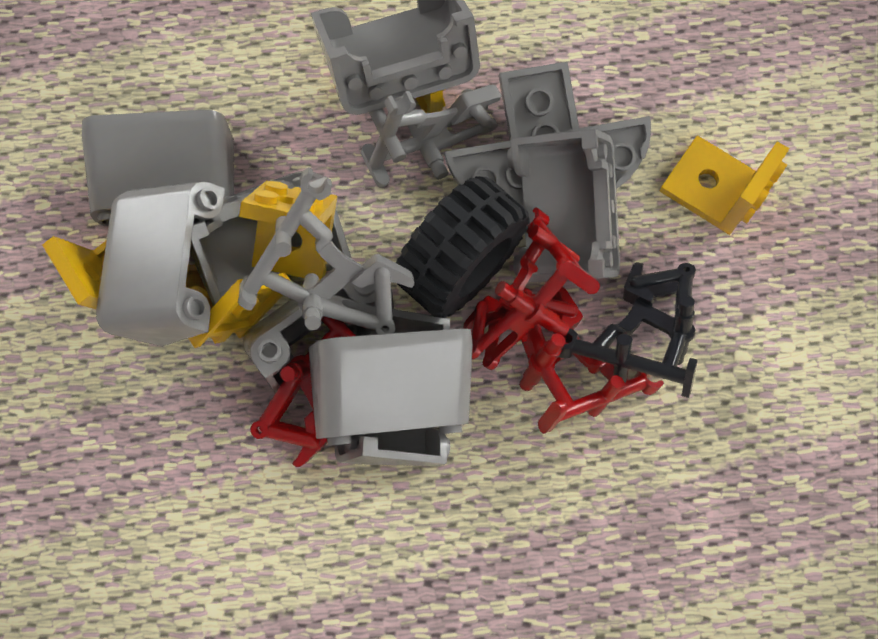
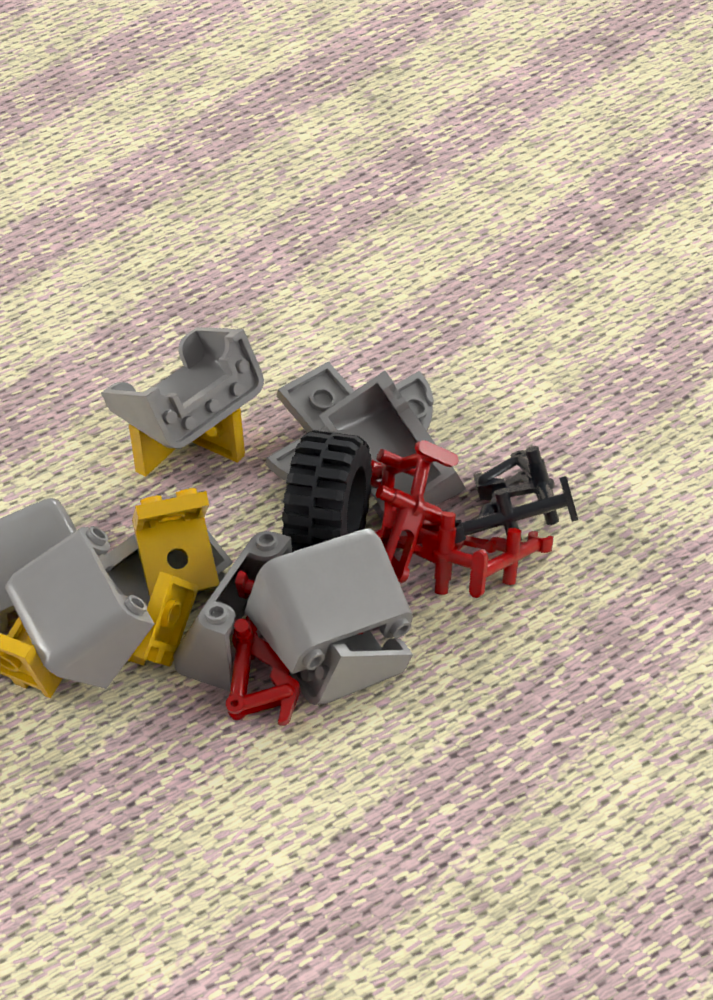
camera: 25 degrees left, 30 degrees down
(318, 296) = (238, 552): light grey piece -> none
(427, 129) = (266, 425): light grey piece -> none
(737, 189) = (519, 398): yellow bracket -> none

